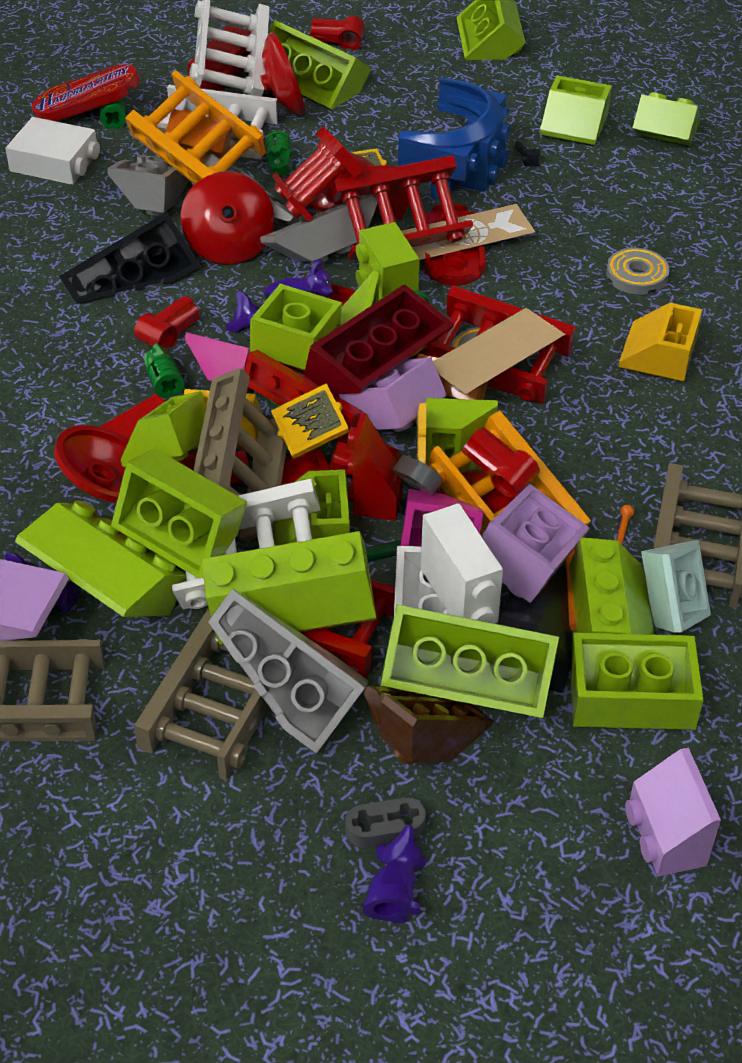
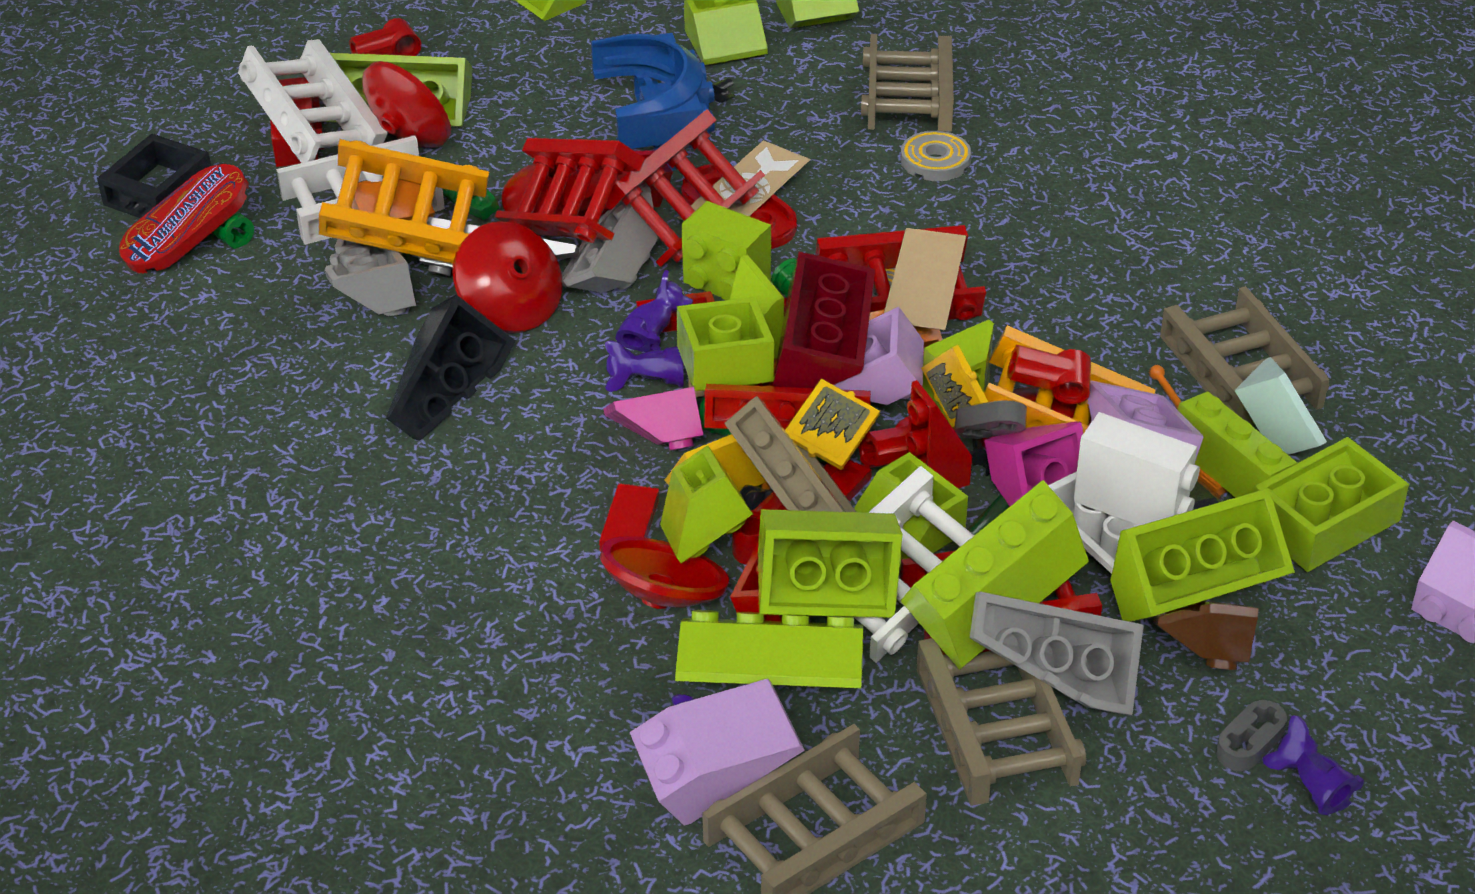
camera: 35 degrees left, 5 degrees down
(52, 150) = (214, 295): white brick -> none
(101, 48) = (121, 184): none -> black window
(163, 371) = (591, 454): green hinge -> none
(167, 324) = (551, 416): red piece -> none
(662, 341) = (1037, 206): yellow slope -> none
(679, 226) = (939, 73): none -> dark tan fence

